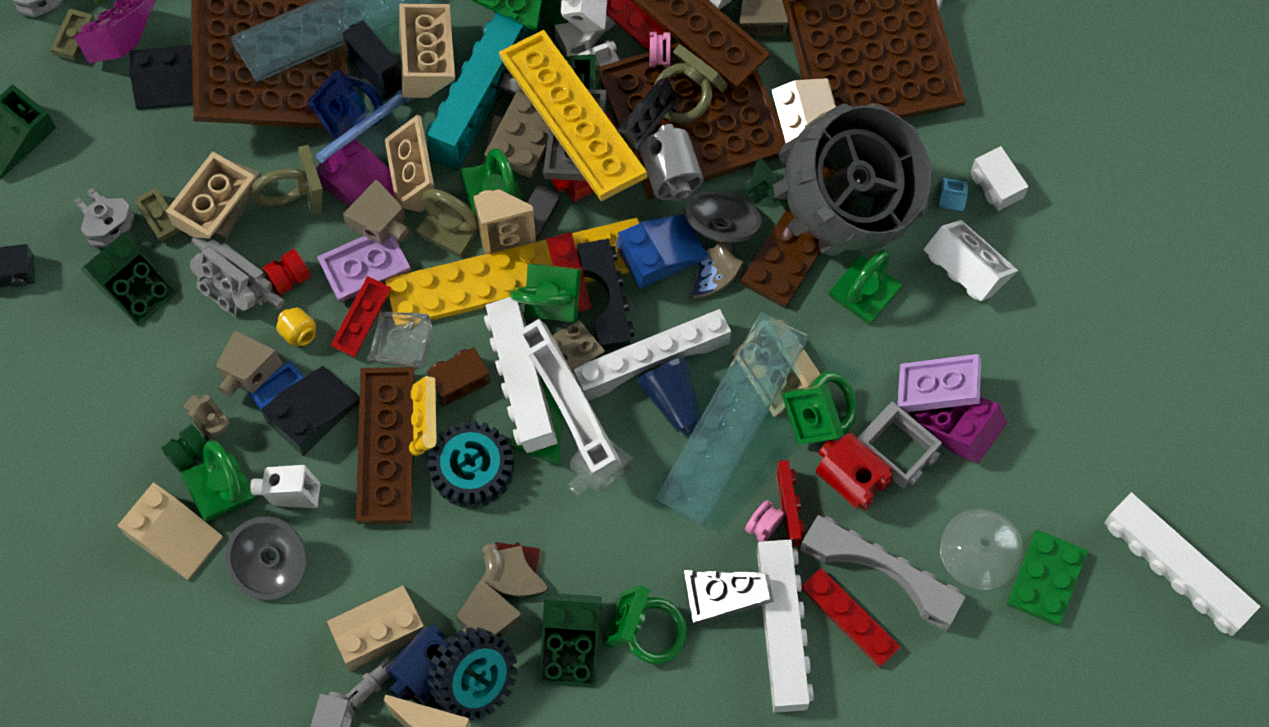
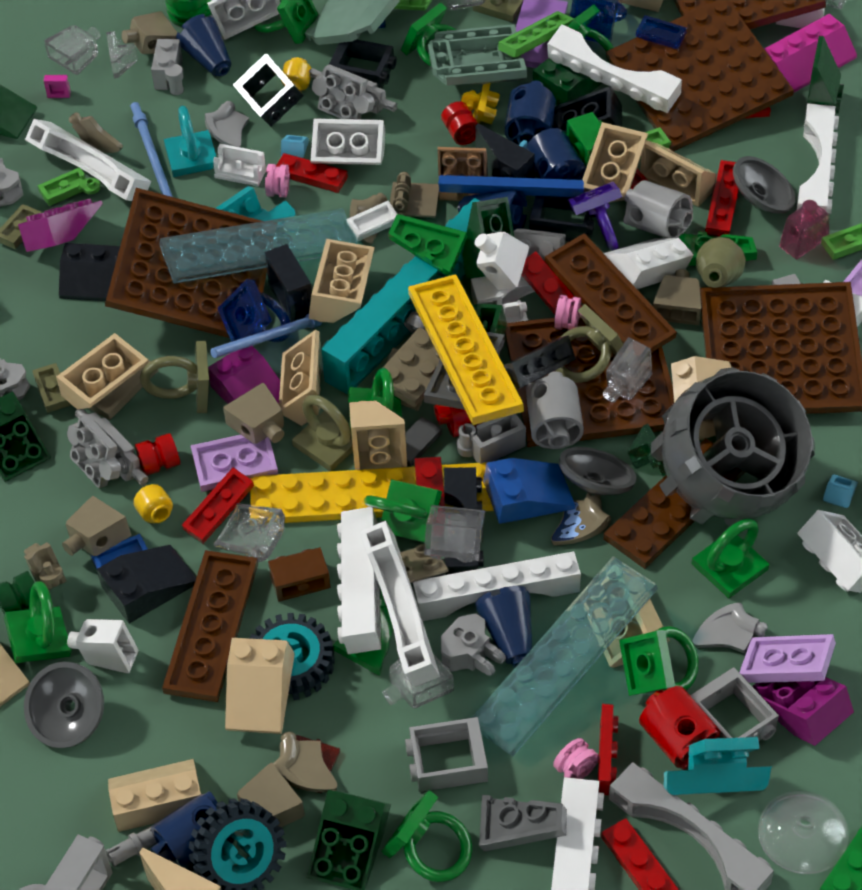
camera: 15 degrees right, 15 degrees down
(423, 416) = (253, 601): yellow plate -> none
(450, 505) = (258, 685): none -> tan slope
(603, 312) = (454, 533): none -> clear slope
(614, 207) = (492, 439): none -> light grey hinge
(638, 421) = (469, 646): none -> light grey hinge
(662, 510) = (444, 733): none -> light grey window
(732, 106) = (628, 371): none -> clear torso
(877, 358) = (729, 628): none -> light grey arm
(898, 507) = (718, 767): none -> teal plate

